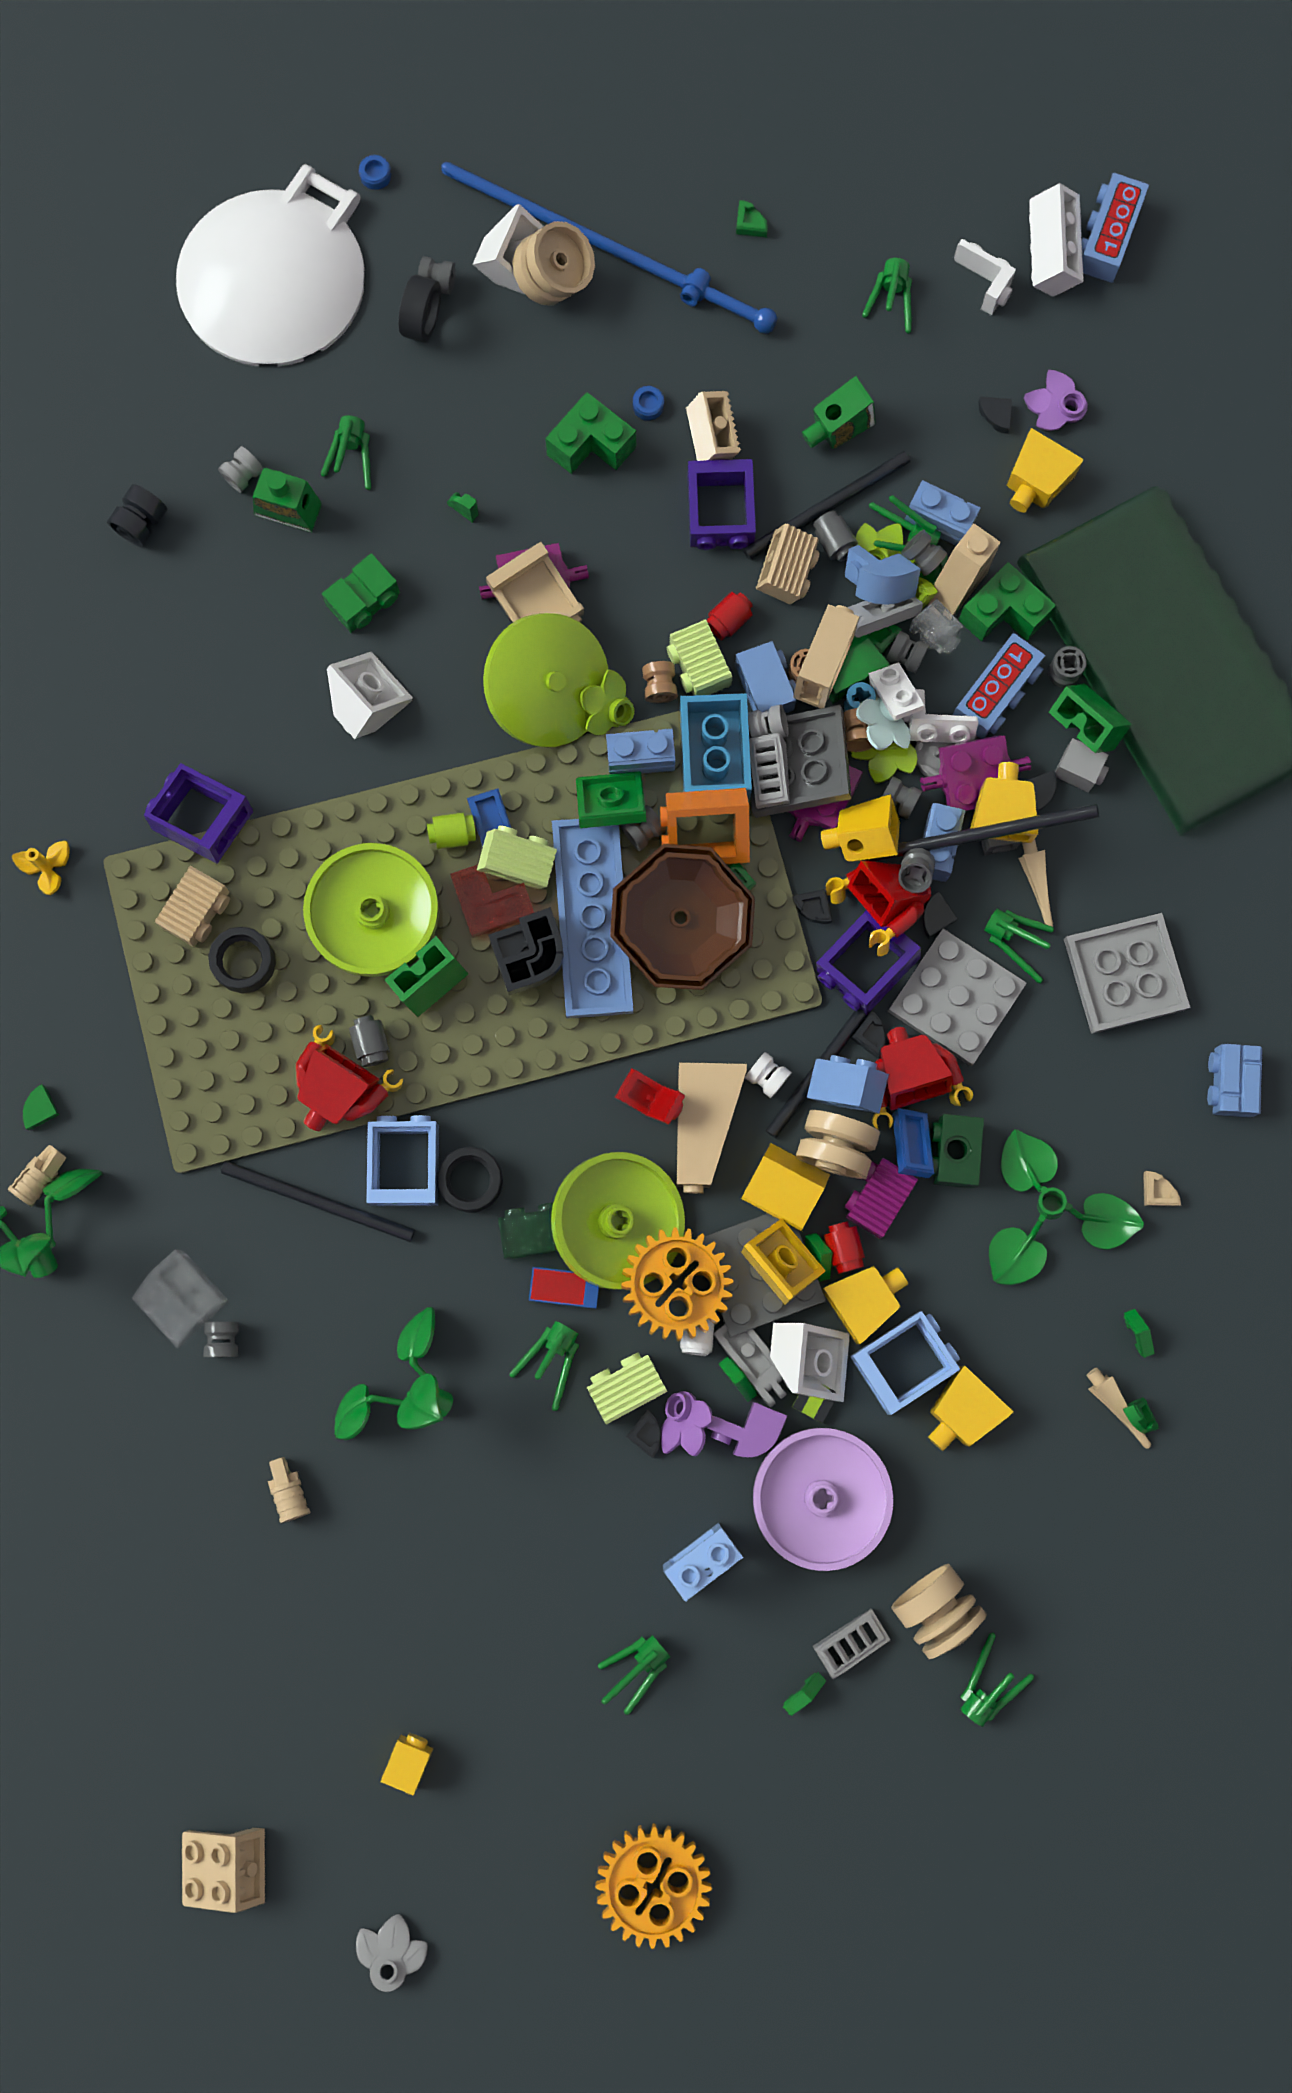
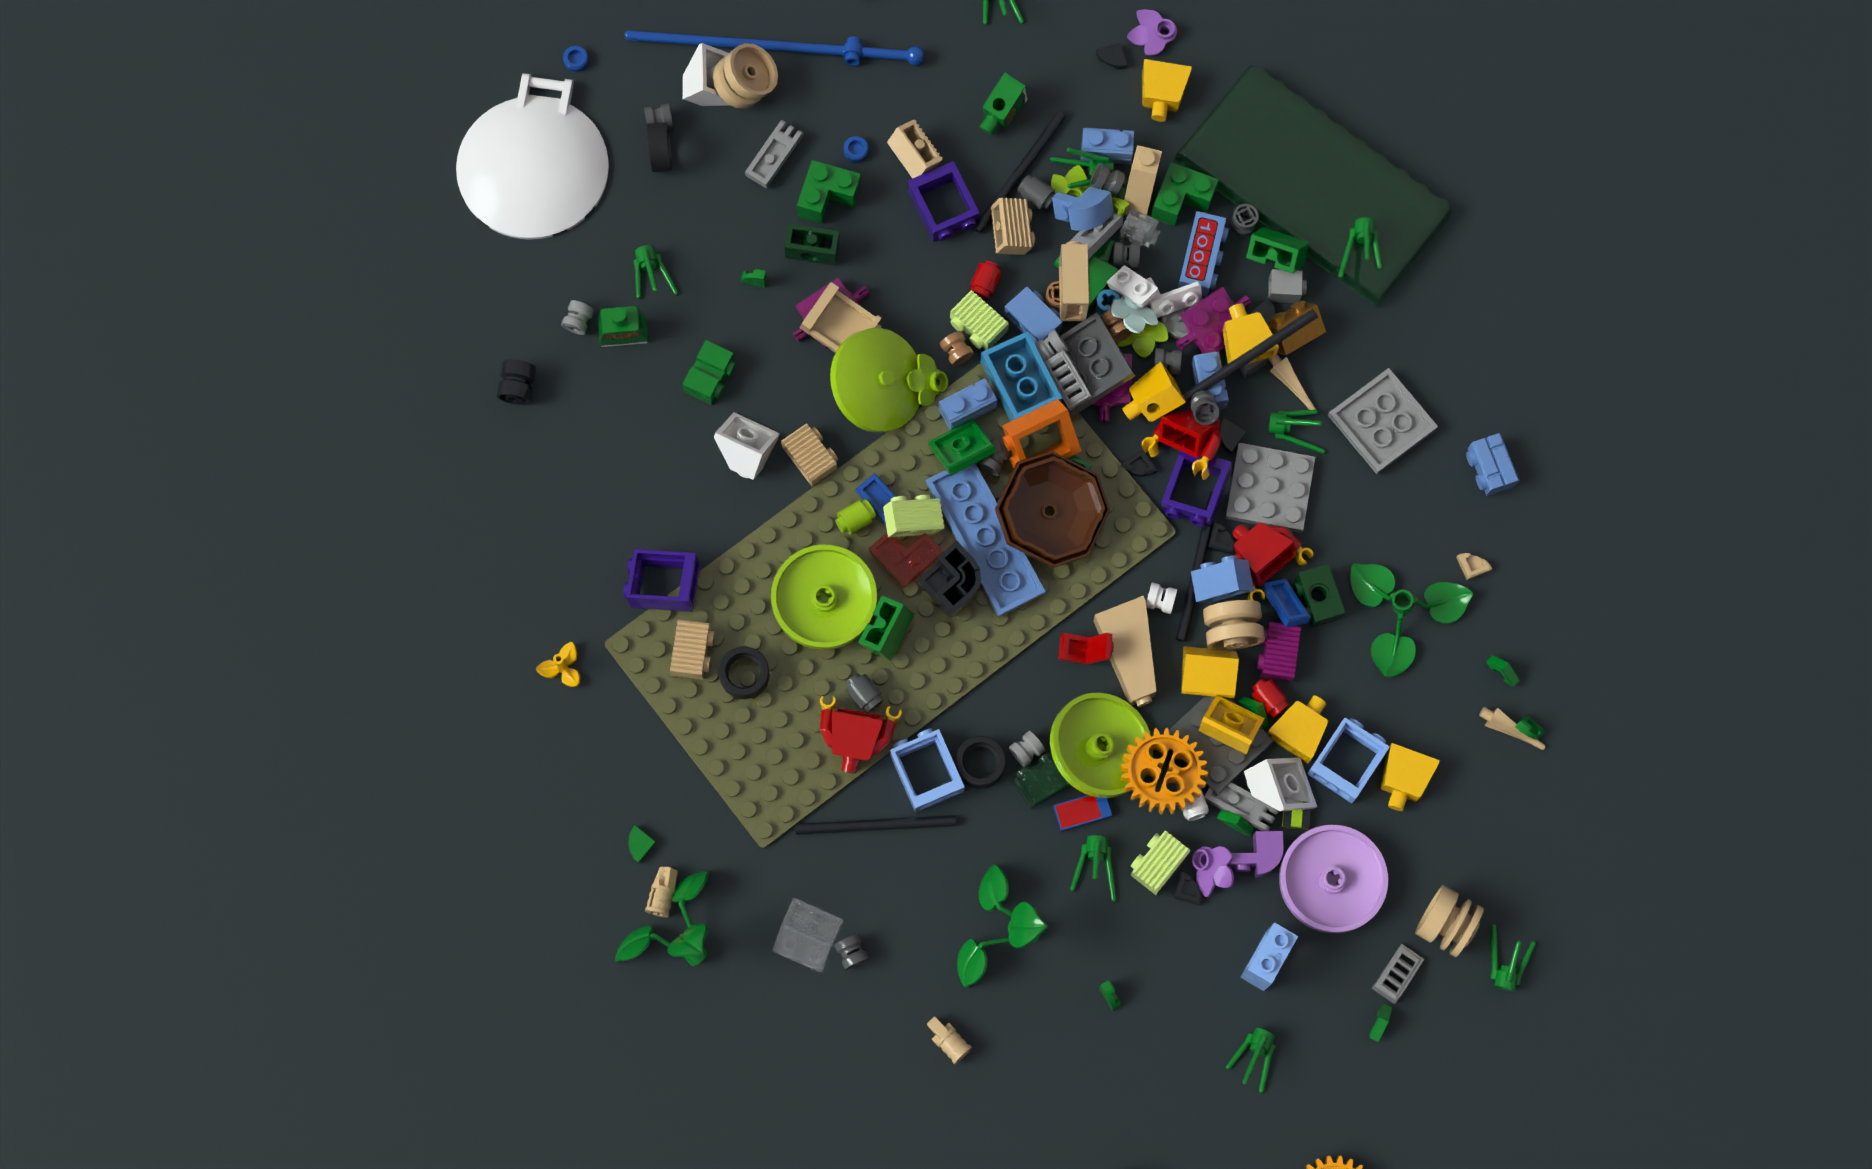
camera: 25 degrees left, 5 degrees down
(433, 736) = (809, 454): none -> tan brick
(498, 1520) = (1108, 992): none -> green tile
(528, 1188) = (1024, 751): none -> light grey wheel
(545, 491) = (812, 244): none -> dark green brick
(550, 370) = (773, 154): none -> light grey hinge
(1073, 832) = (1303, 335): none -> pearl gold brick
(1203, 739) = (1365, 234): none -> green plant

